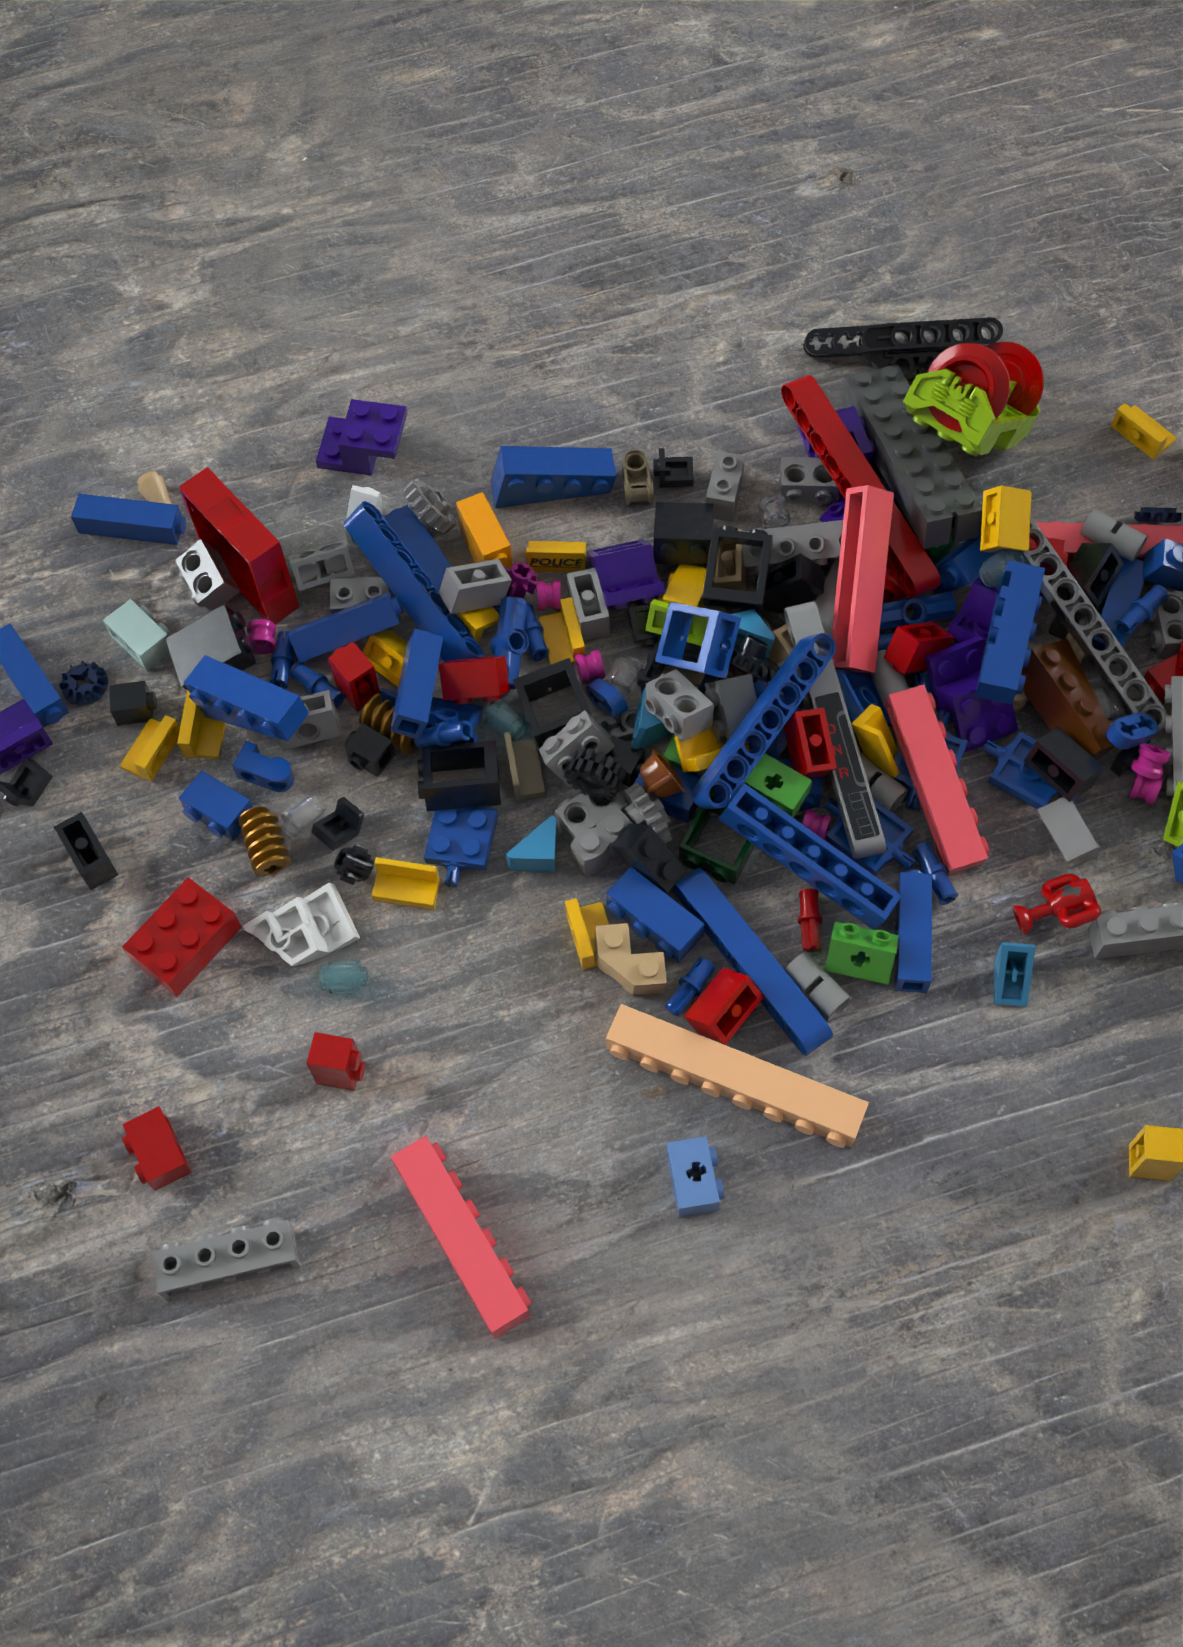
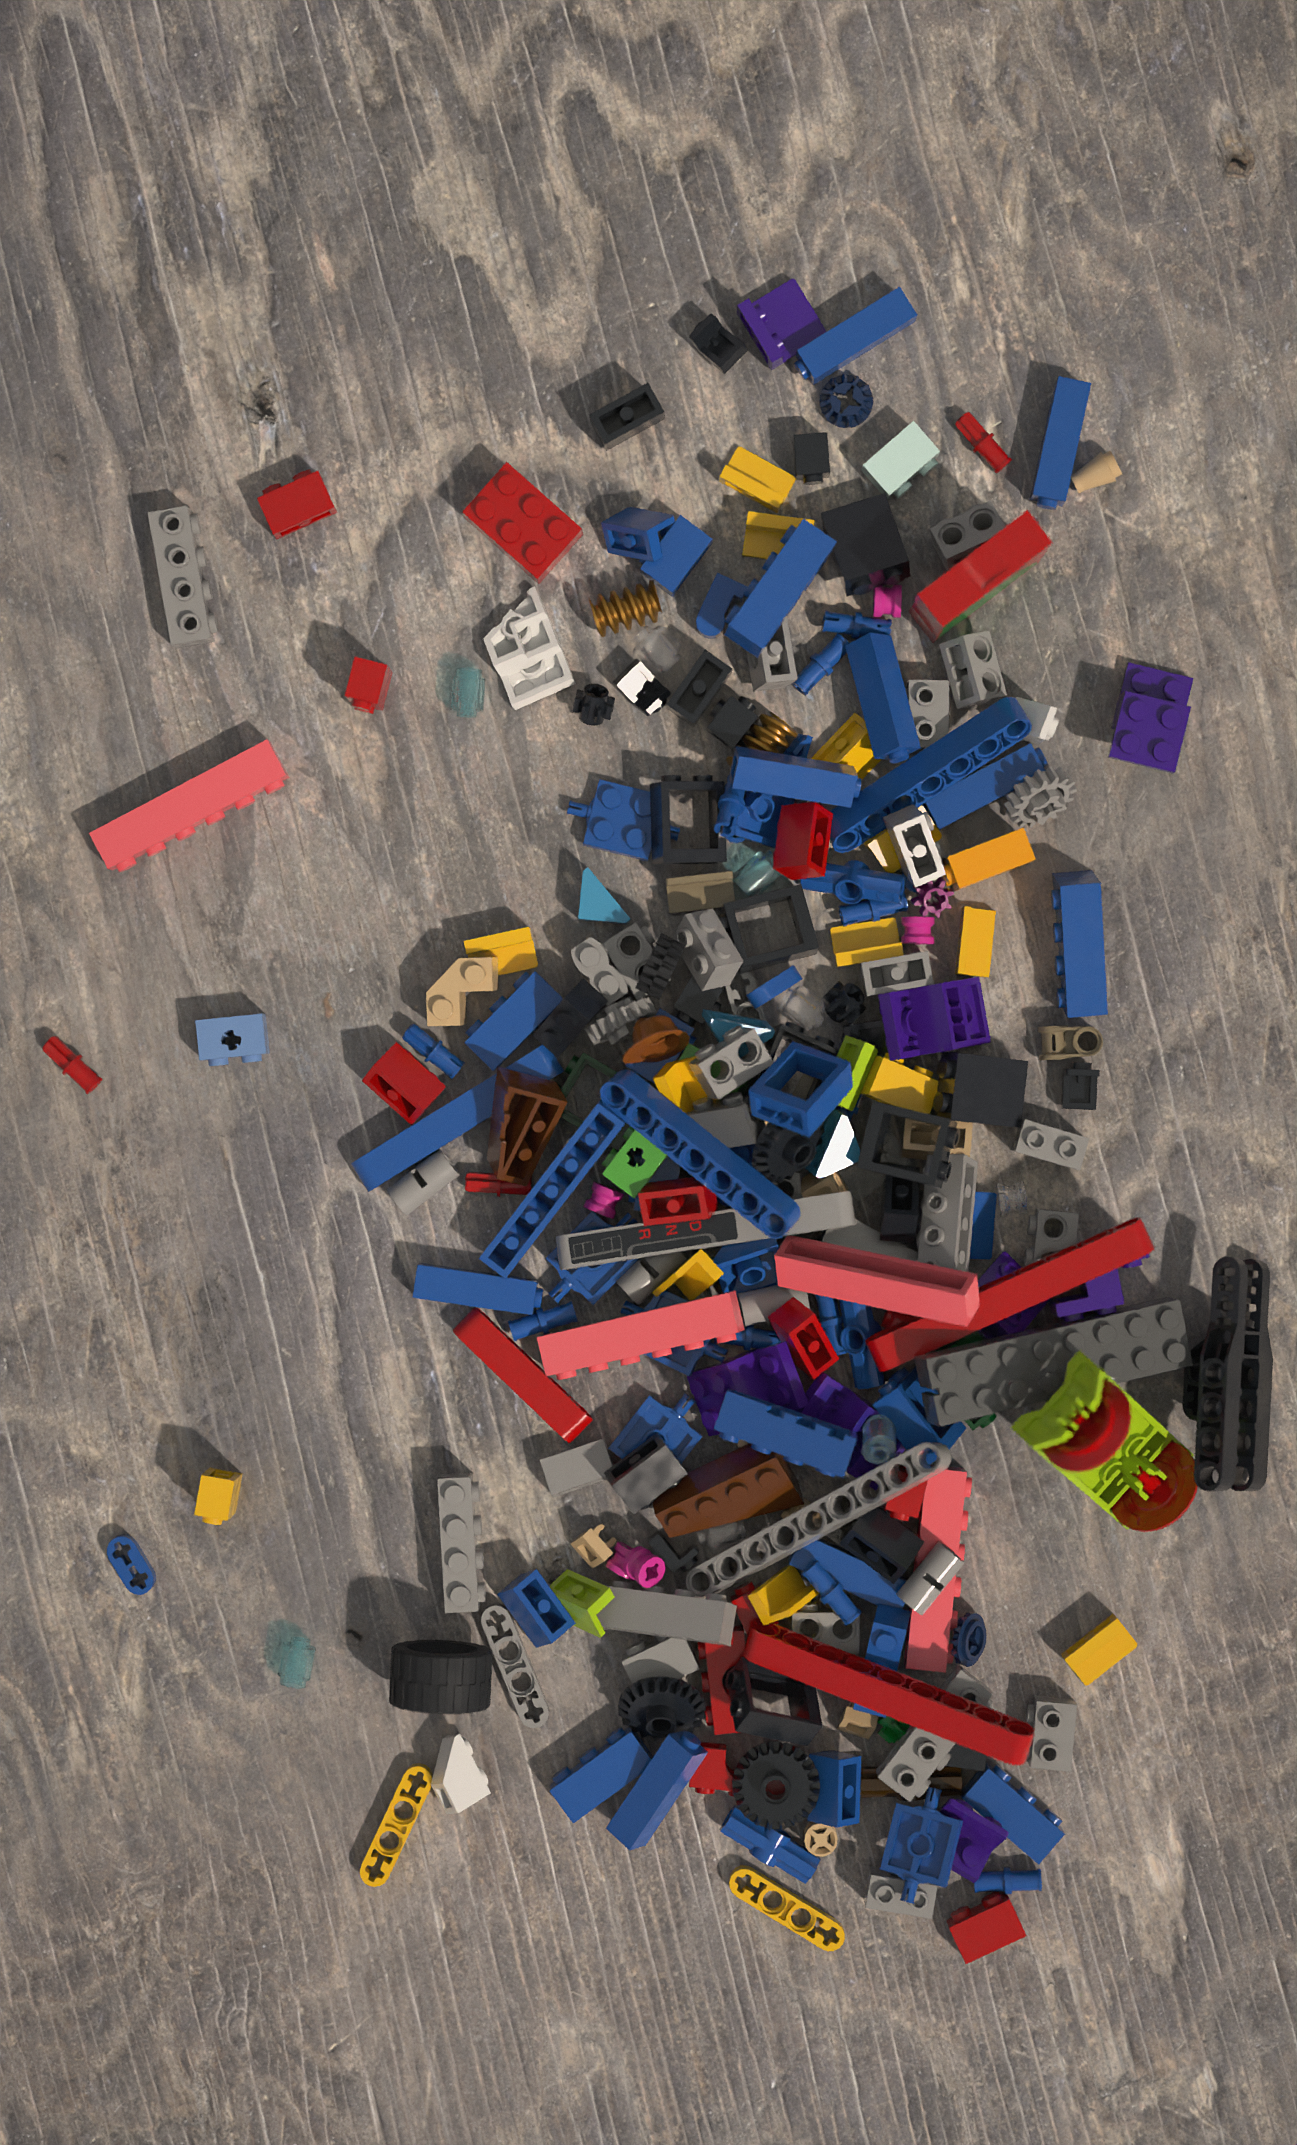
camera: 90 degrees right, 25 degrees up
(126, 576) = (982, 442): none -> red axle
(195, 834) = (635, 533): none -> blue panel
(338, 774) = (699, 688): none -> black brick
(354, 675) = (818, 706): red brick -> none
(406, 883) = (568, 759): yellow panel -> none
(589, 666) = (820, 971): dark pink wheel -> none
(616, 643) = (844, 1002): none -> black gear
(735, 1342) = (71, 1064): none -> red axle
(736, 1076) = (332, 1089): light nougat brick -> none
(753, 890) = (521, 1123): none -> reddish brown wedge
(861, 952) = (452, 1231): bright green brick -> none
(987, 886) = (522, 1374): none -> red beam
(1005, 519) = (919, 1447): yellow panel -> none
(1013, 973) = (419, 1384): dark azure slope -> none
(1067, 898) = (493, 1448): red piece -> none
(1132, 730) = (682, 1549): blue beam -> none
(1138, 815) = (592, 1547): none -> tan tile
(1155, 648) = (781, 1595): none -> yellow panel

